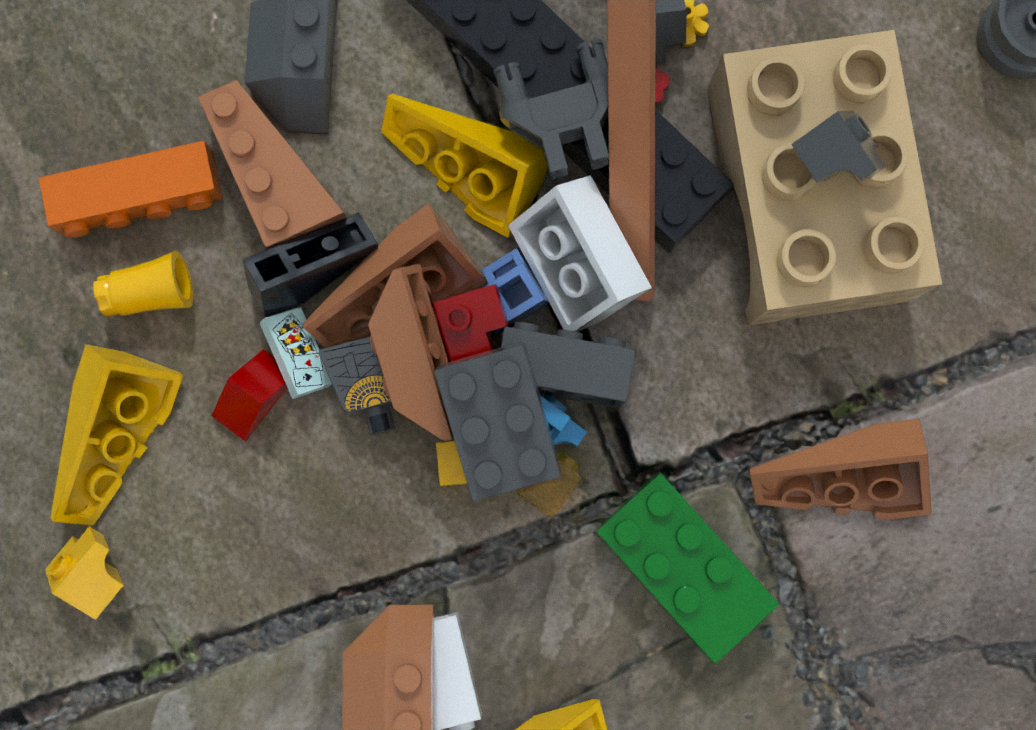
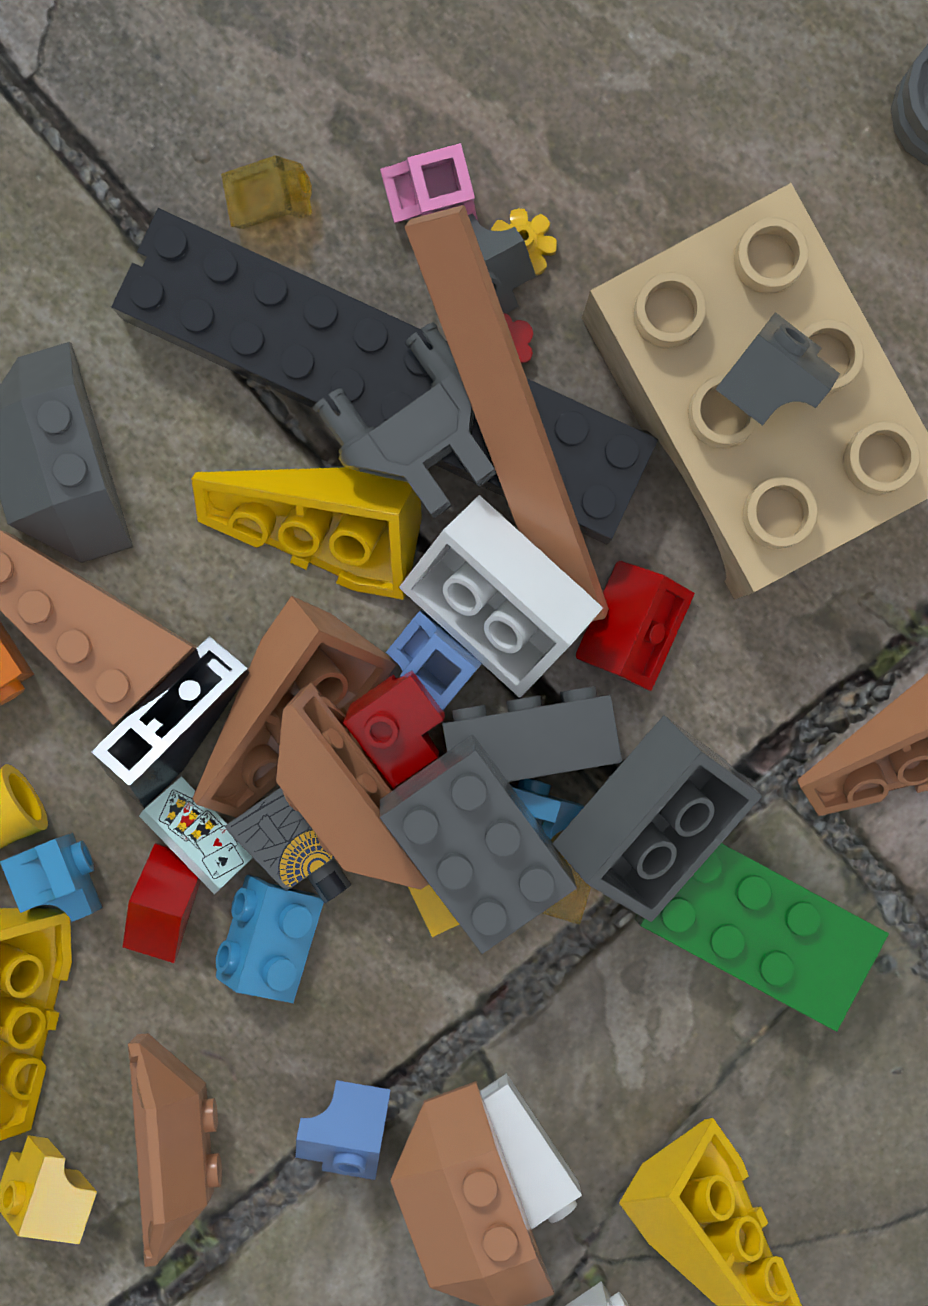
camera: 15 degrees left, 5 degrees up
(181, 341) = (55, 876): none -> dark azure brick
(191, 573) = (171, 1144): none -> nougat wedge
(319, 447) = (268, 940): none -> dark azure bracket
(323, 608) = (347, 1132): none -> medium blue brick
(637, 453) = (656, 820): none -> dark grey brick
(672, 317) = (638, 626): none -> red panel

